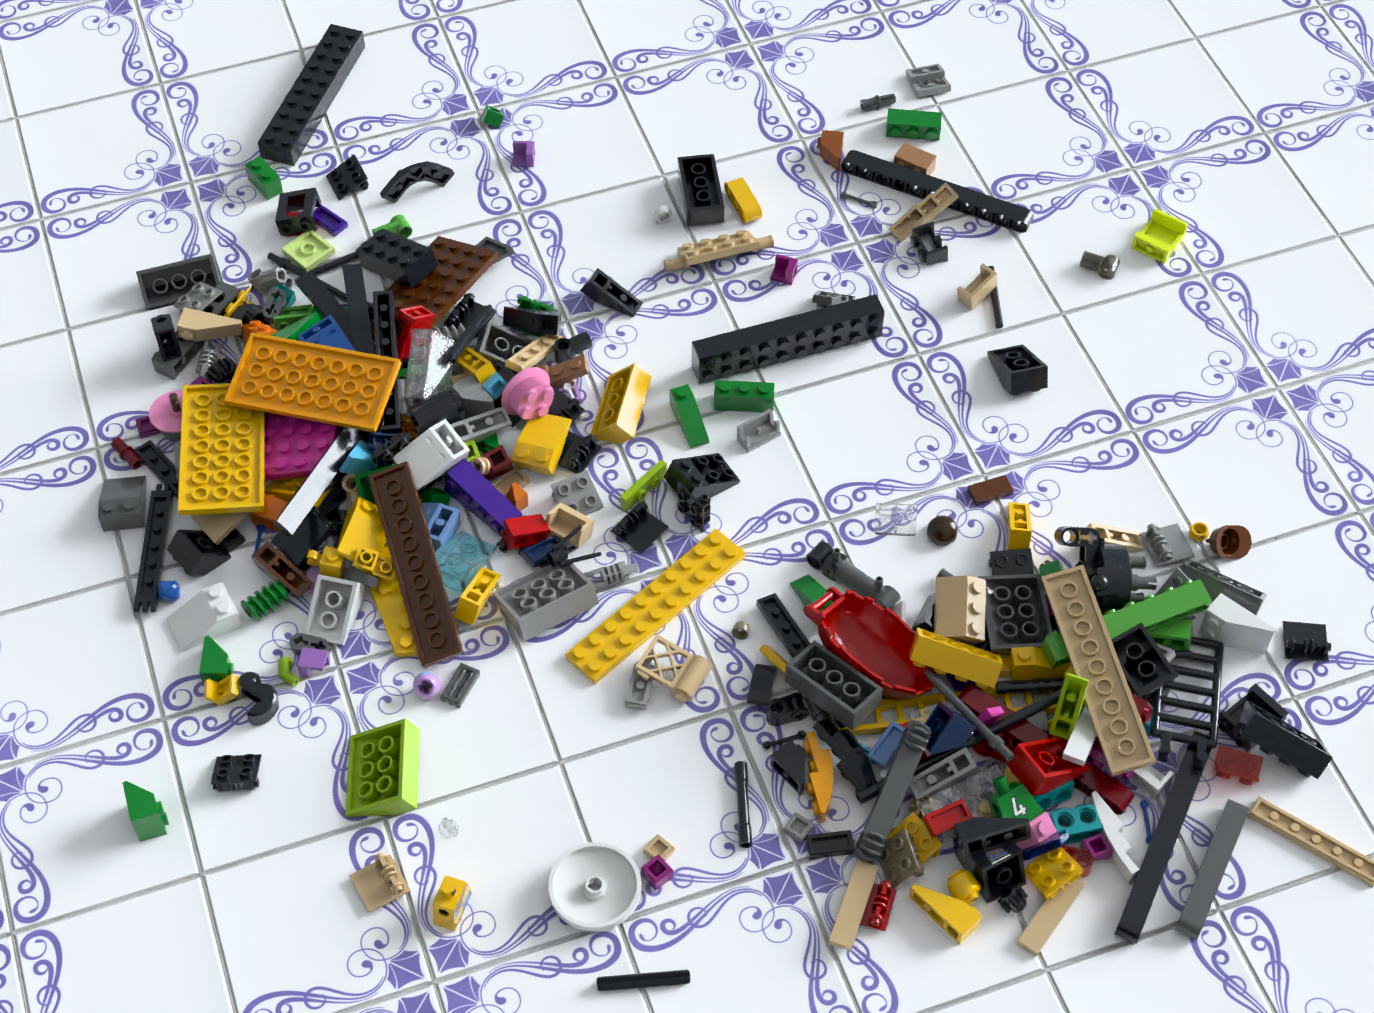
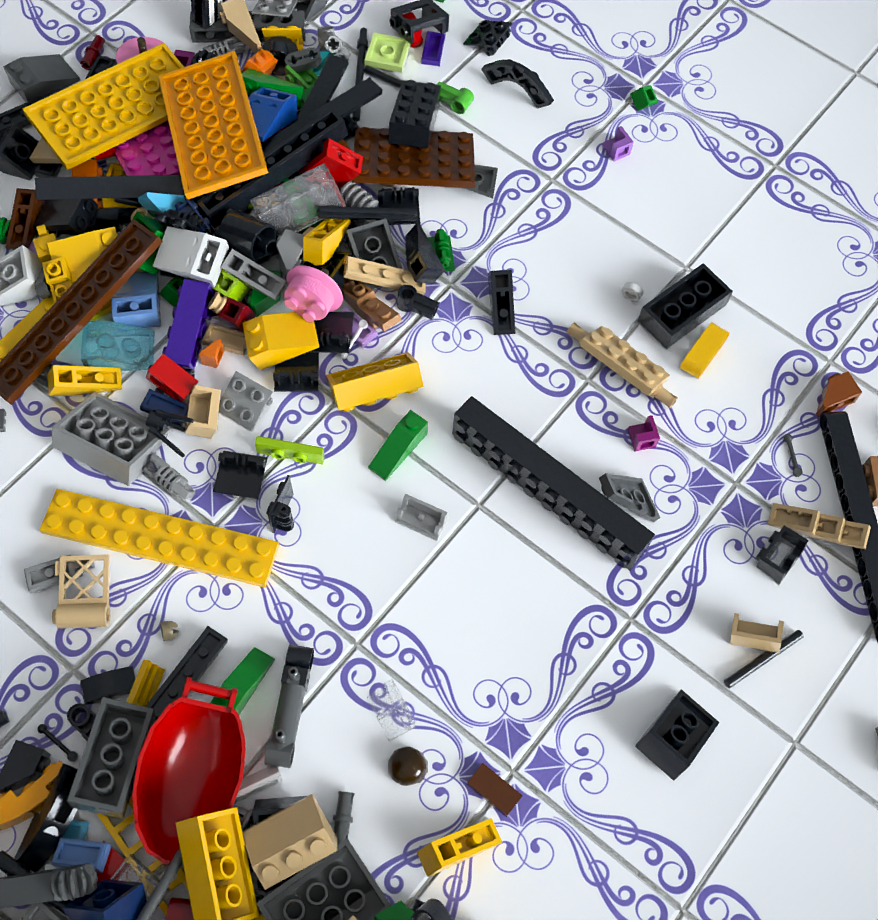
camera: 55 degrees right, 10 degrees up
(494, 385) = (311, 259): medium azure tile -> none
(701, 475) = (332, 496): black slope -> none
(743, 396) = (454, 481): green brick -> none
(1011, 562) = (396, 869): black hinge -> none

